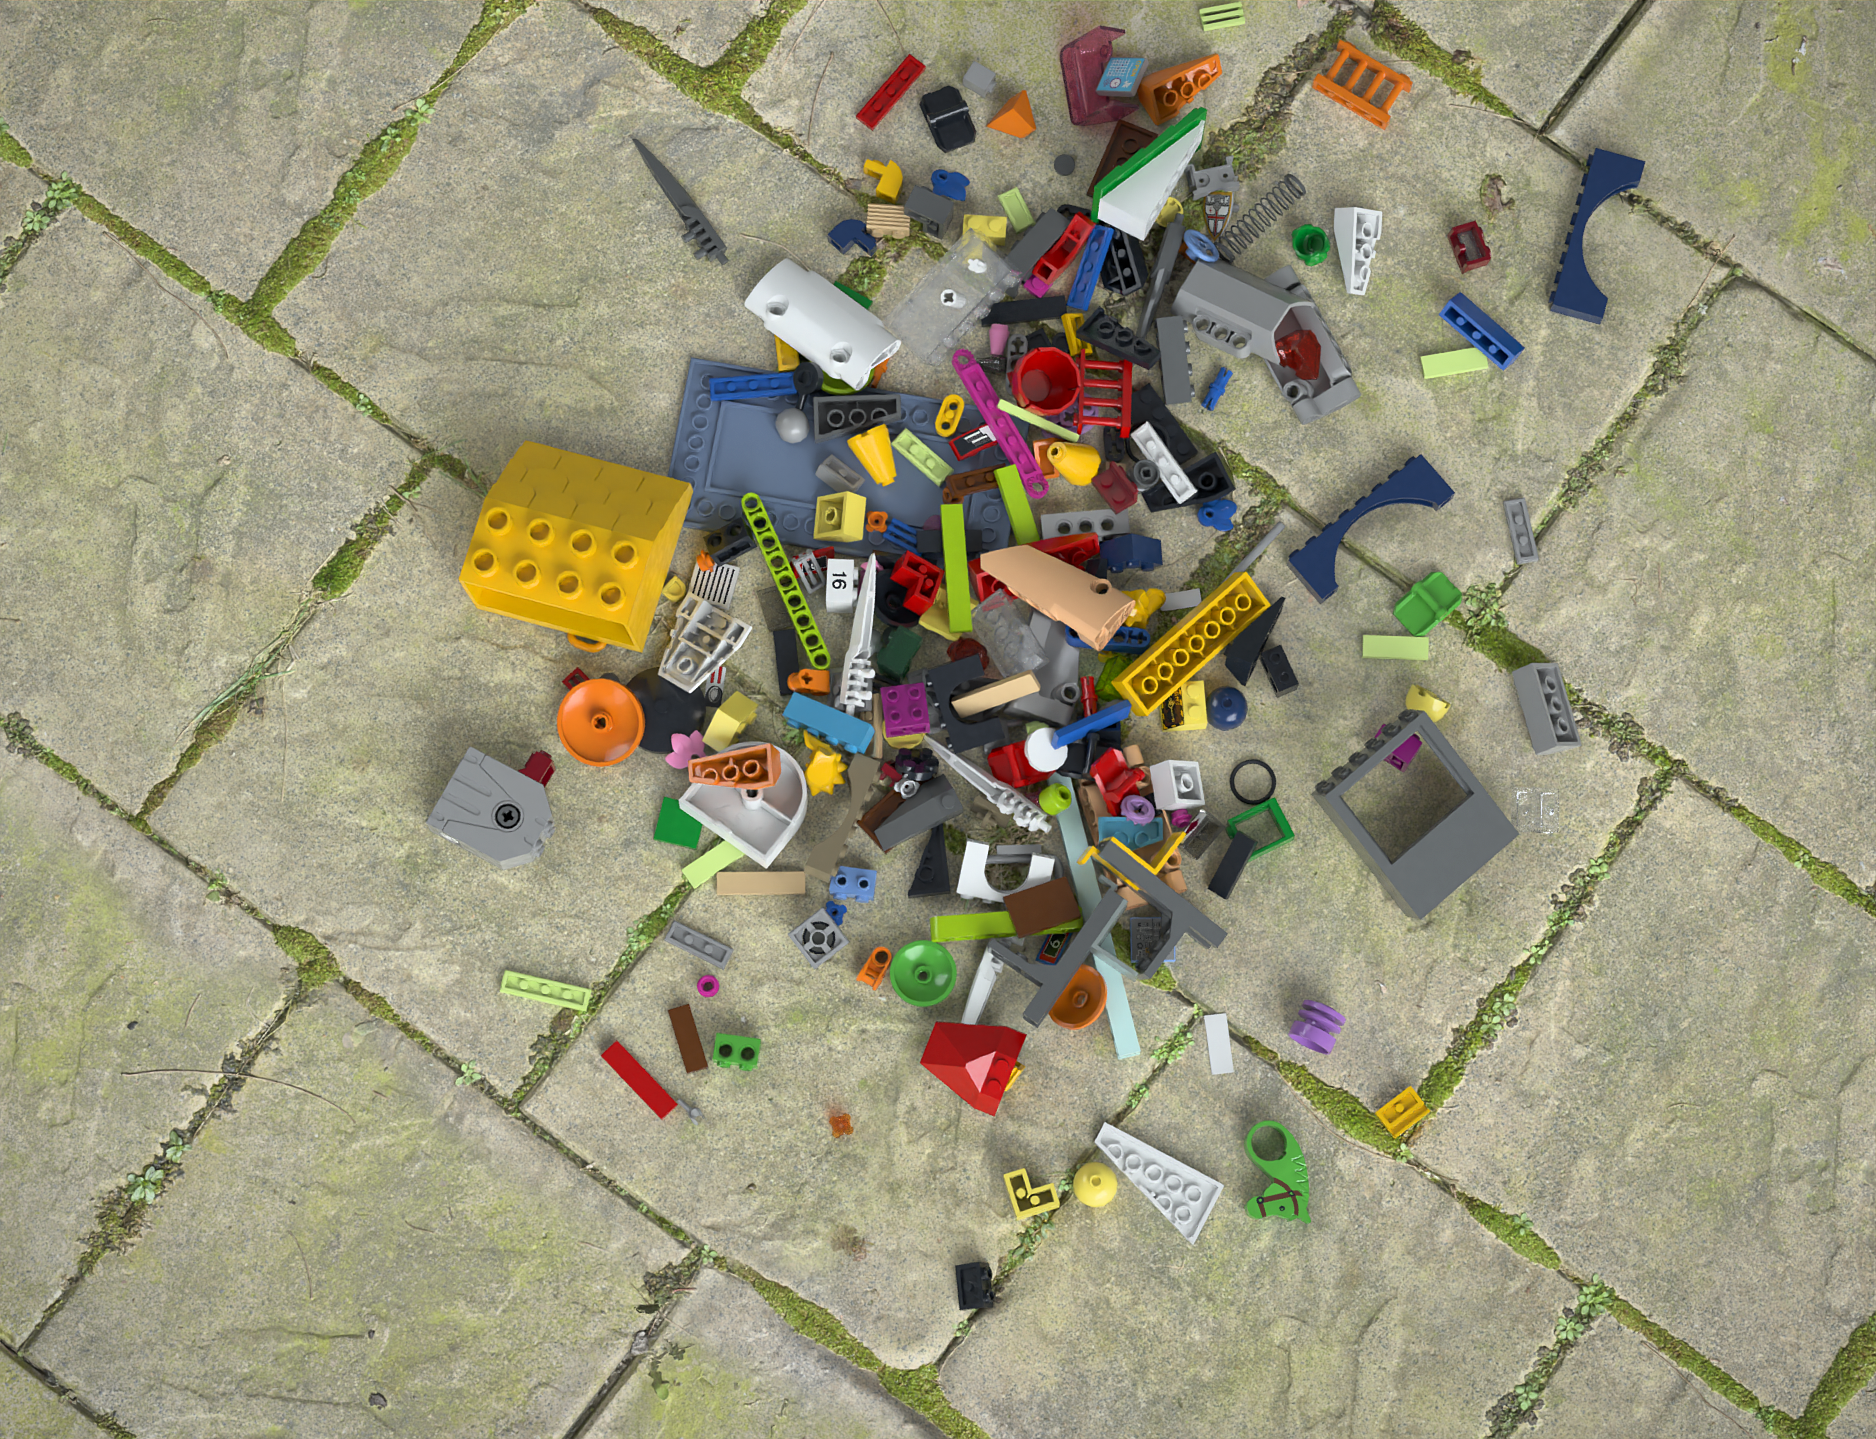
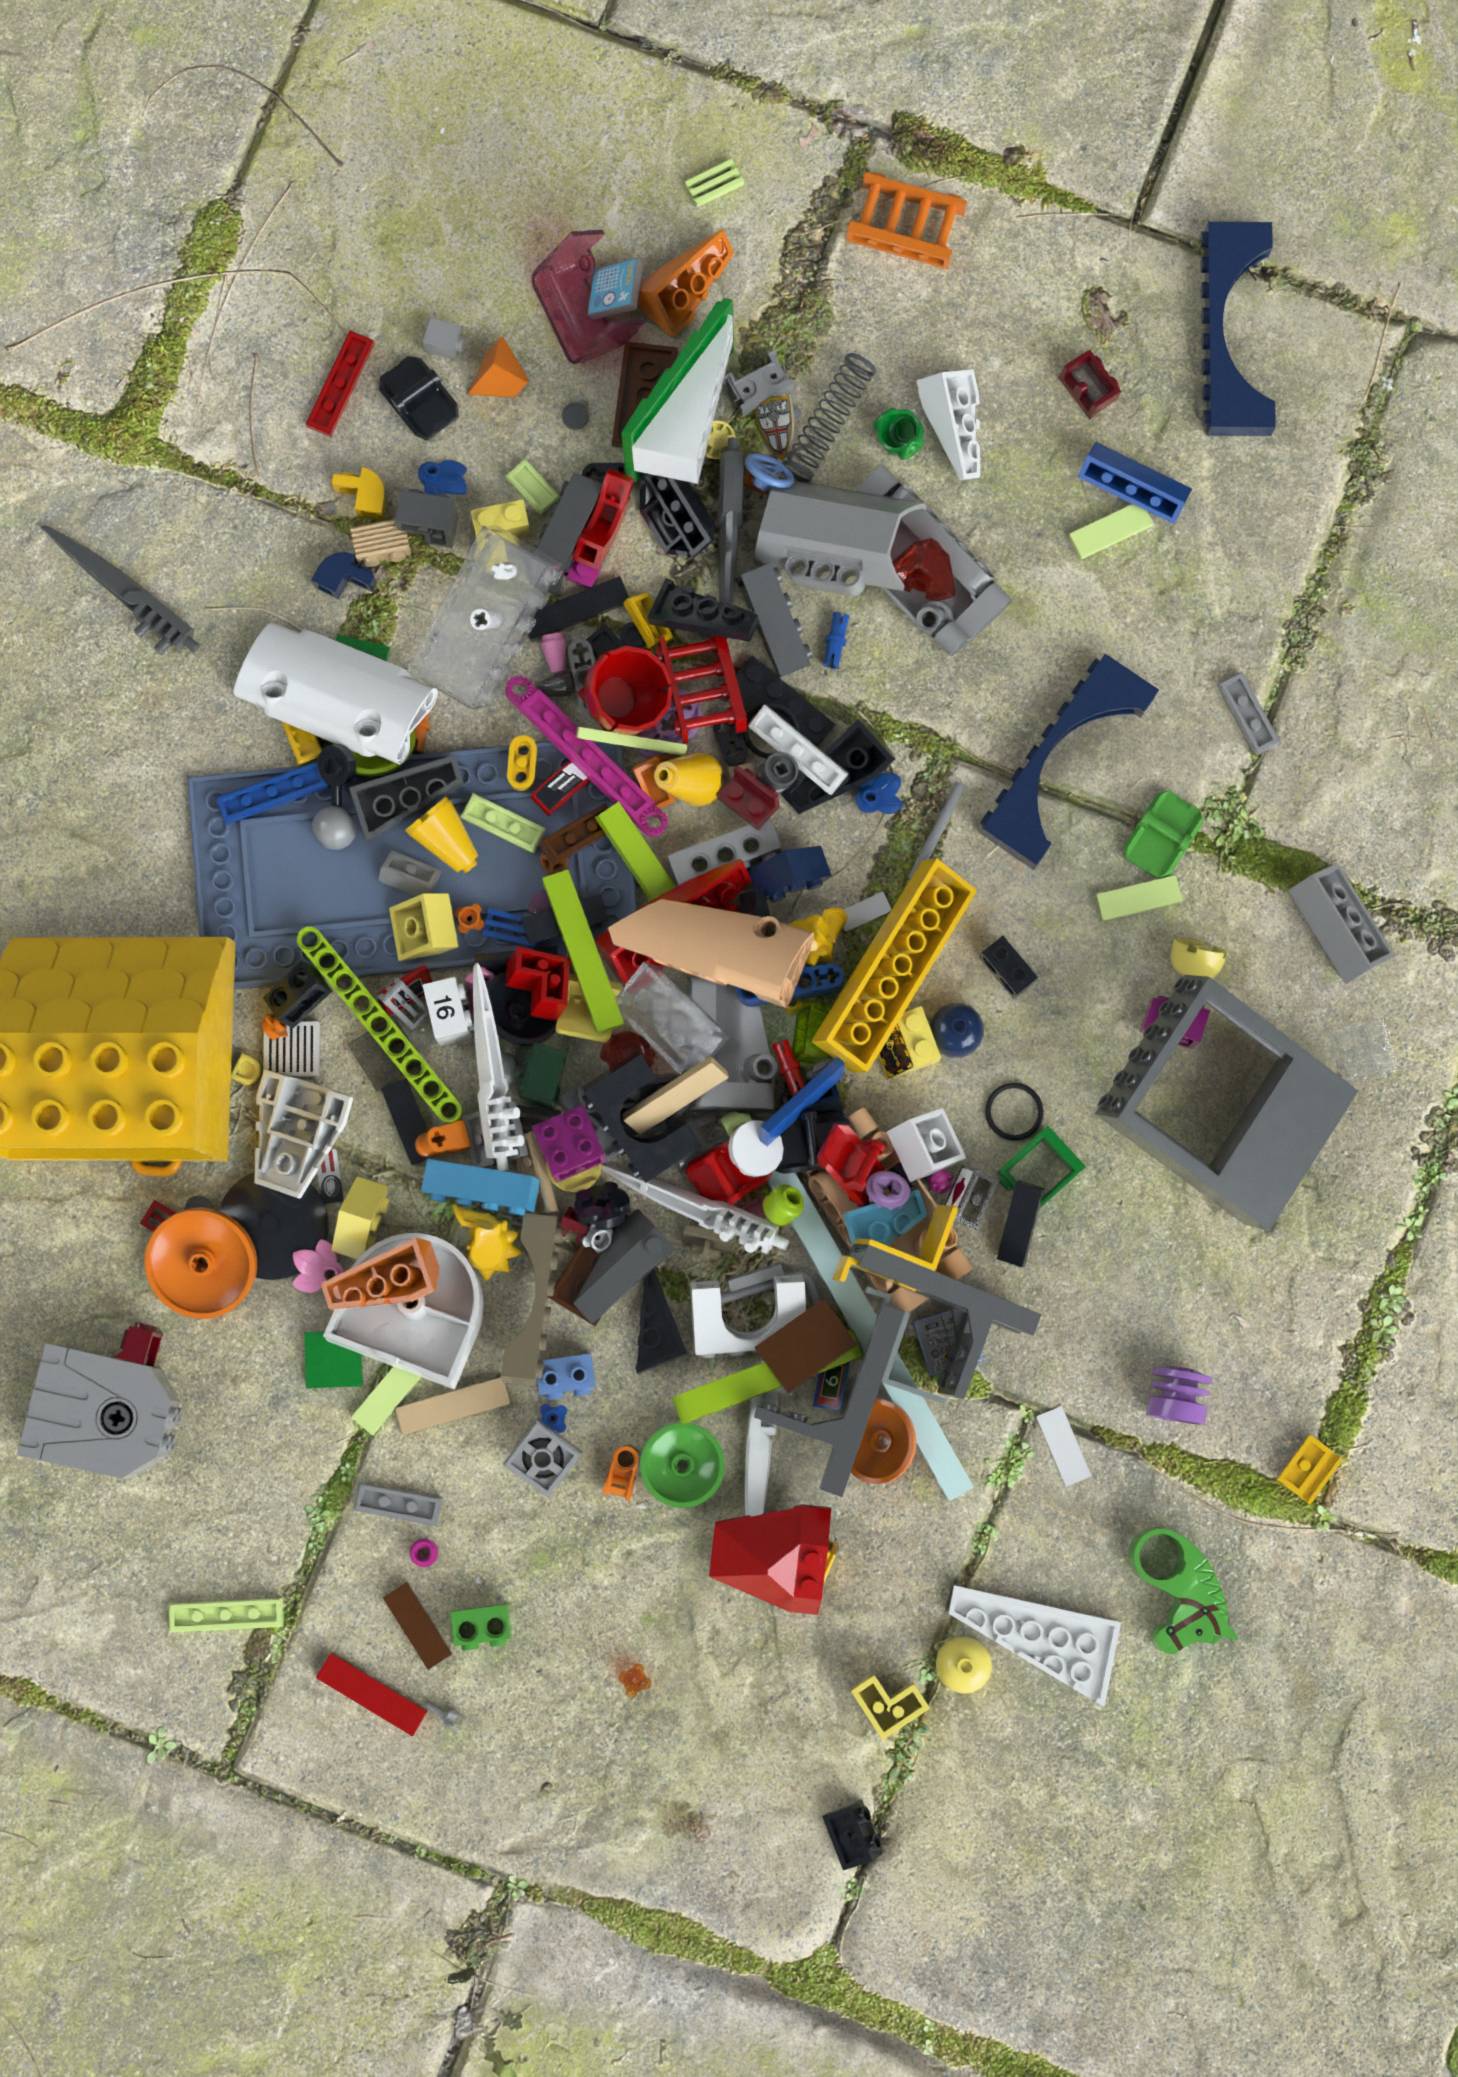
camera: 15 degrees left, 5 degrees up
(1090, 267) = (641, 534): blue tile -> none
(1246, 648) = (964, 945): black wedge -> none

